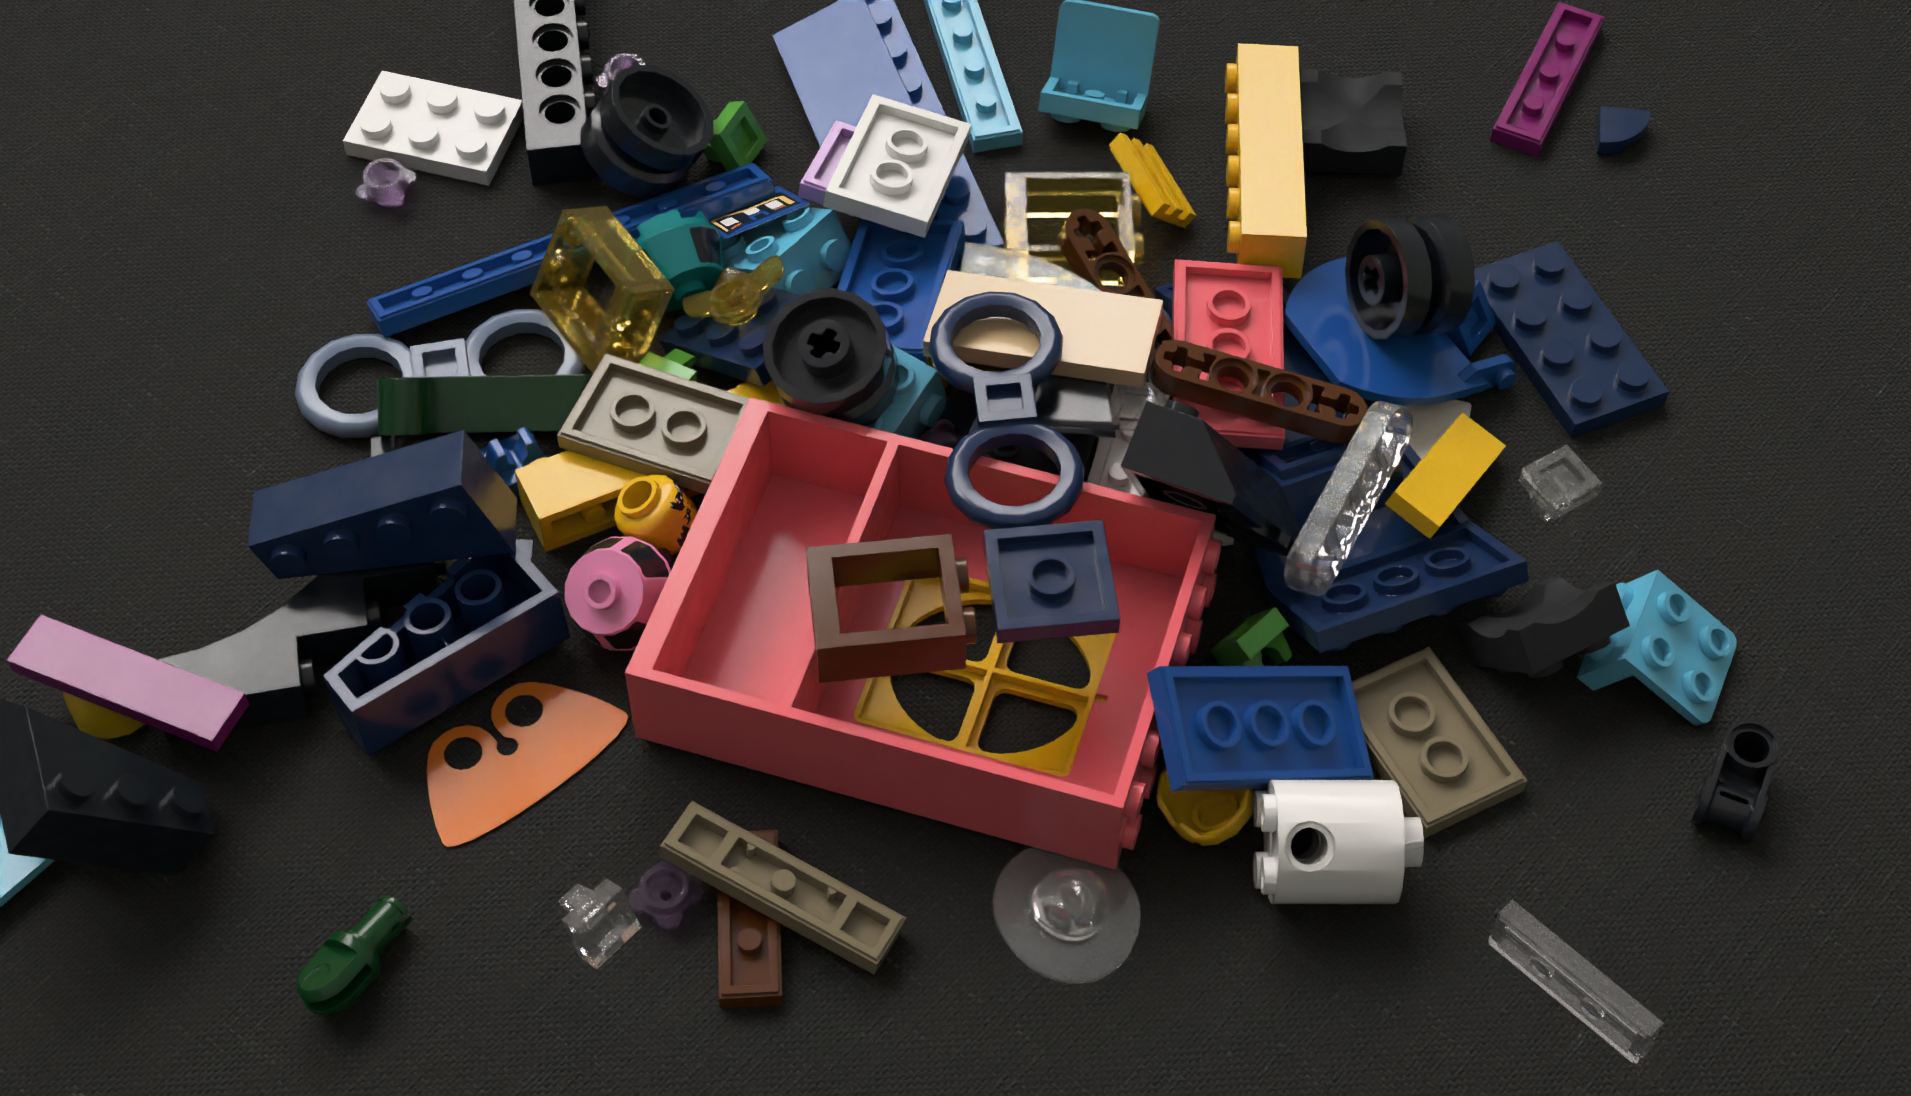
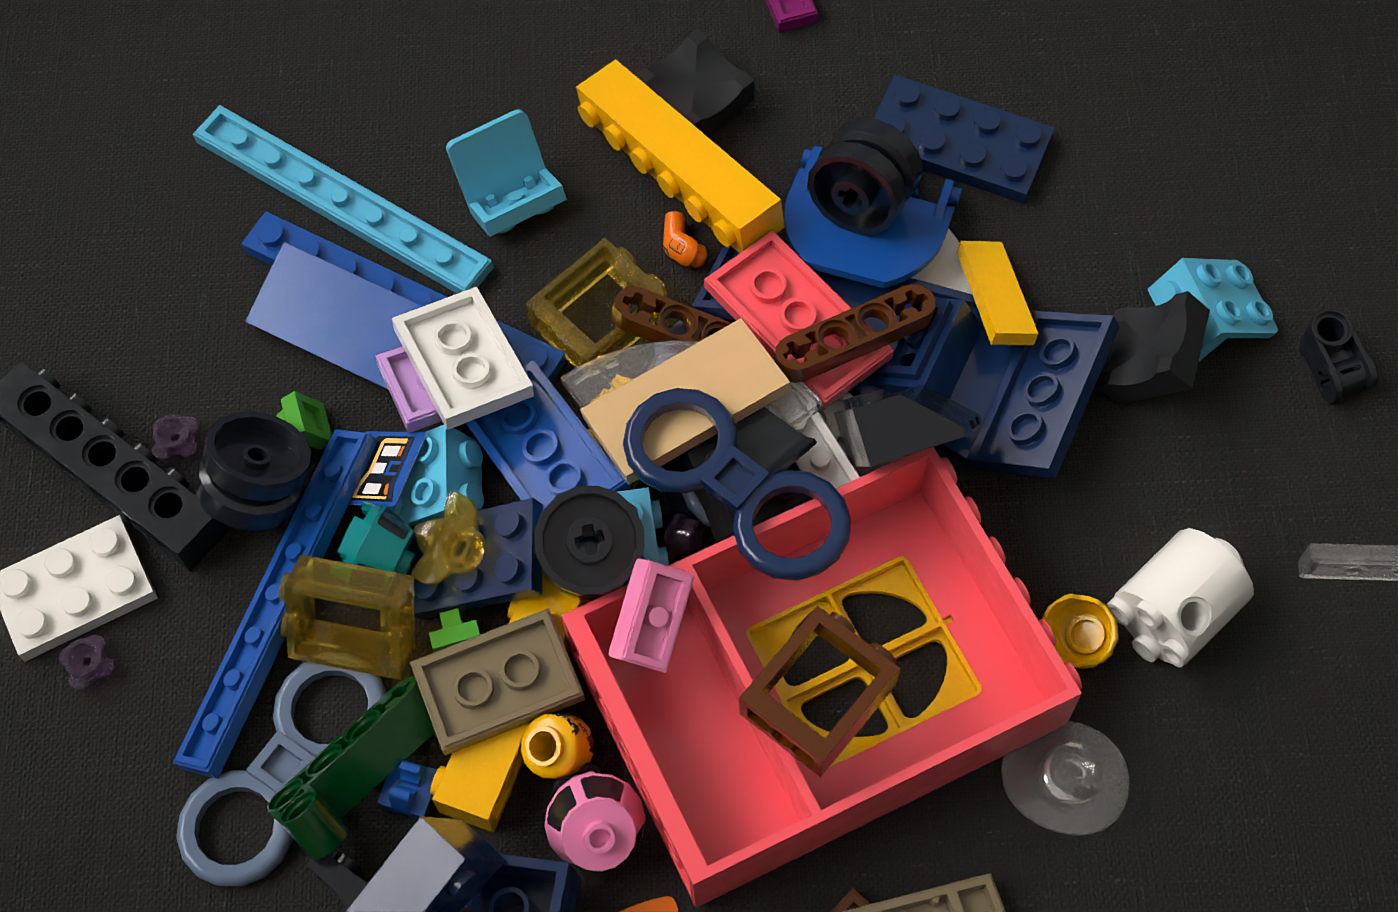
camera: 40 degrees left, 10 degrees up
(815, 445) = (651, 615): none -> bright pink slope
(1050, 581) = (894, 580): dark blue plate -> none
(1152, 181) = (616, 229): yellow tile -> none
(1201, 232) = (679, 245): none -> orange arm
(1251, 638) = (997, 501): bright green tile -> none
(1257, 725) = (1078, 562): blue tile -> none
(1348, 498) = (976, 360): clear beam -> none
(1432, 742) = (1146, 478): dark tan tile -> none
(1559, 483) = (1062, 243): clear tile -> none

